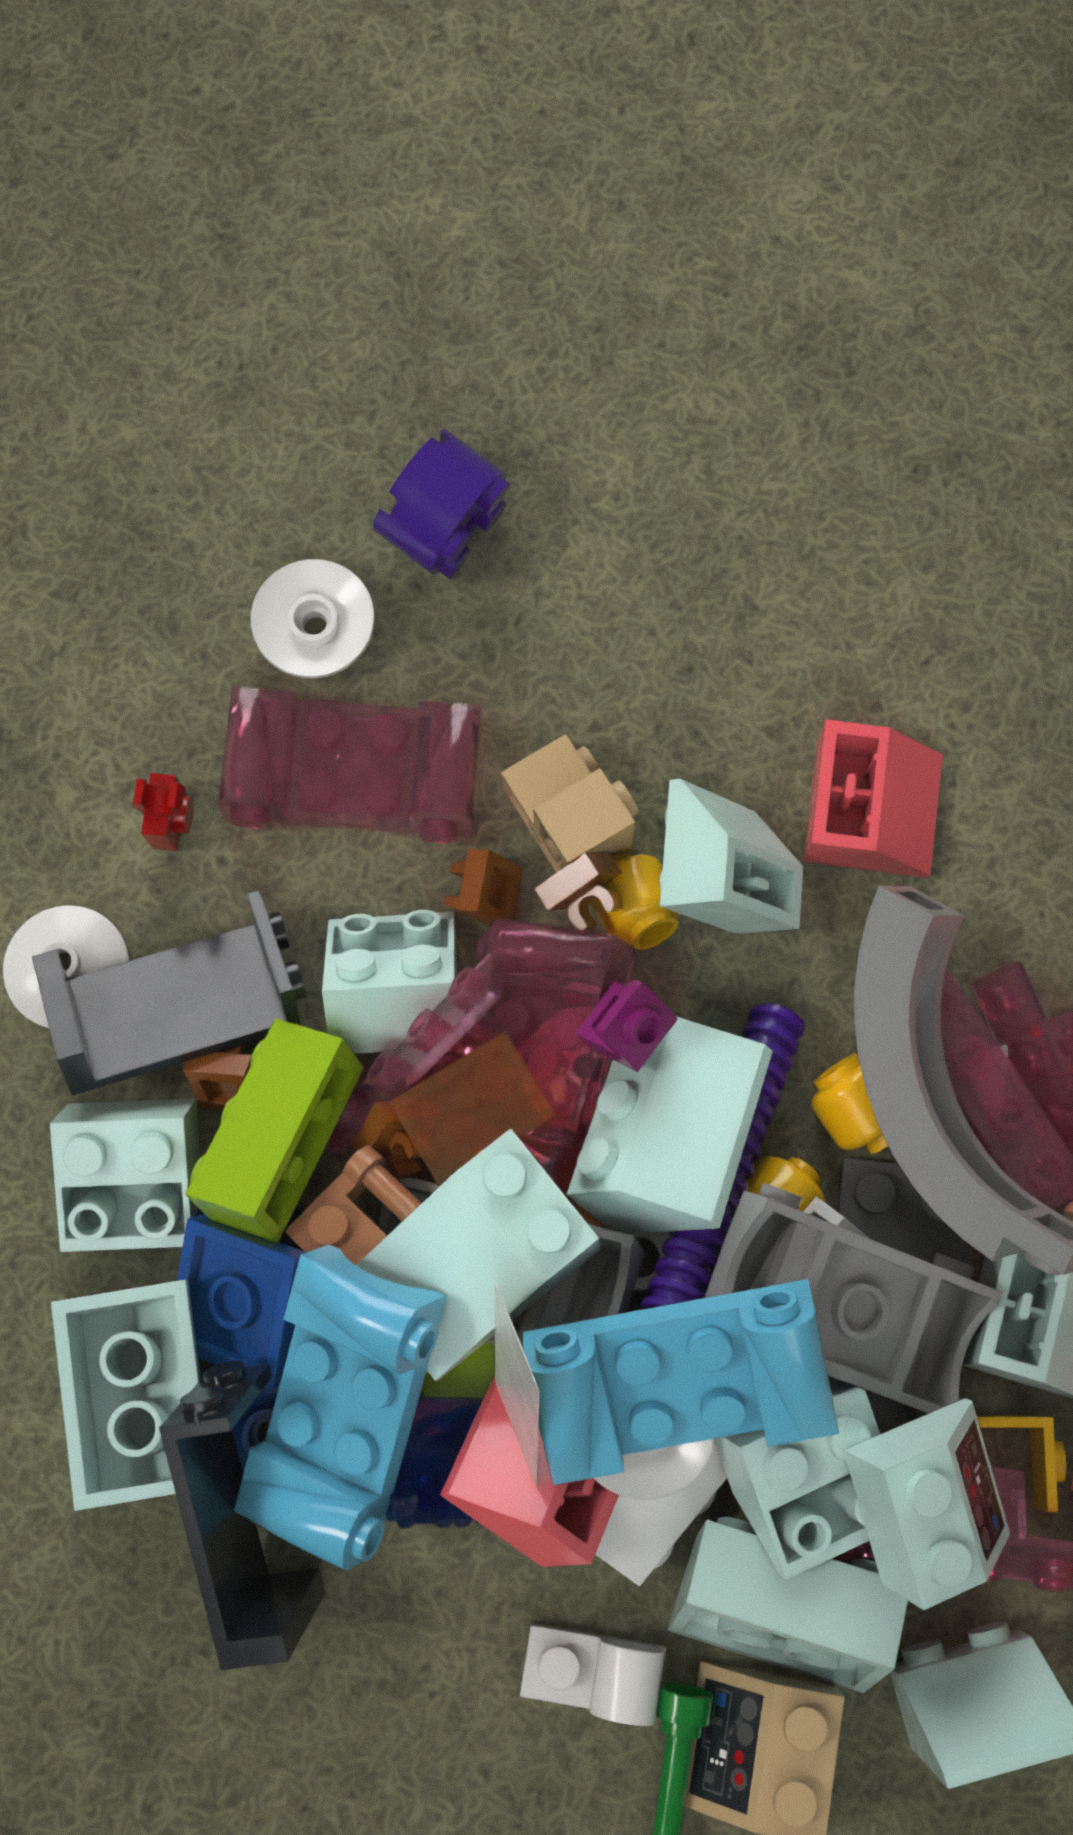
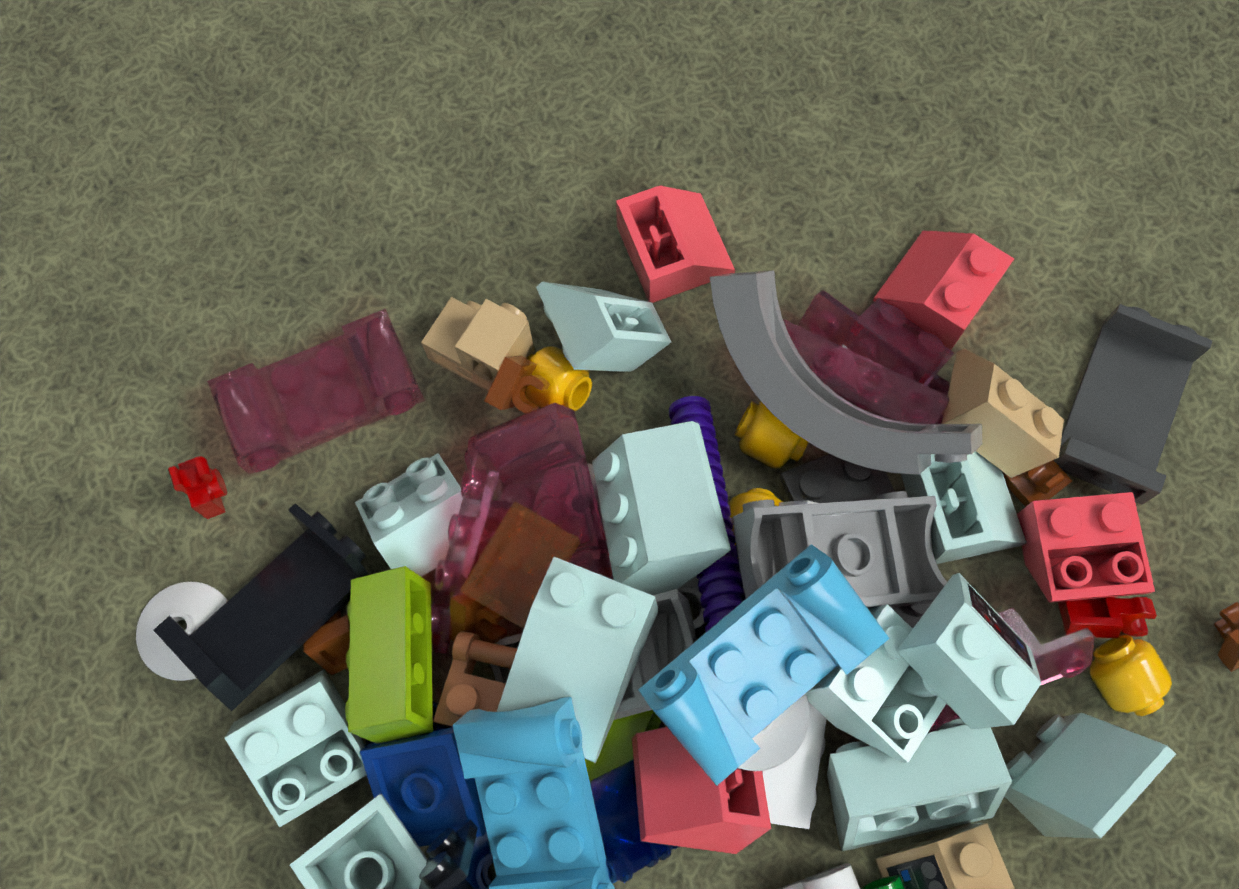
camera: 30 degrees left, 5 degrees down
(305, 592) = (230, 297): white dish -> none
(441, 503) = (291, 195): dark purple brick -> none
(487, 886) = (452, 423): dark orange tile -> none
(516, 1385) = (654, 728): white sticker -> none
(627, 1024) = (594, 452): magenta bracket -> none
(1047, 1455) = (1018, 592): yellow bracket -> none

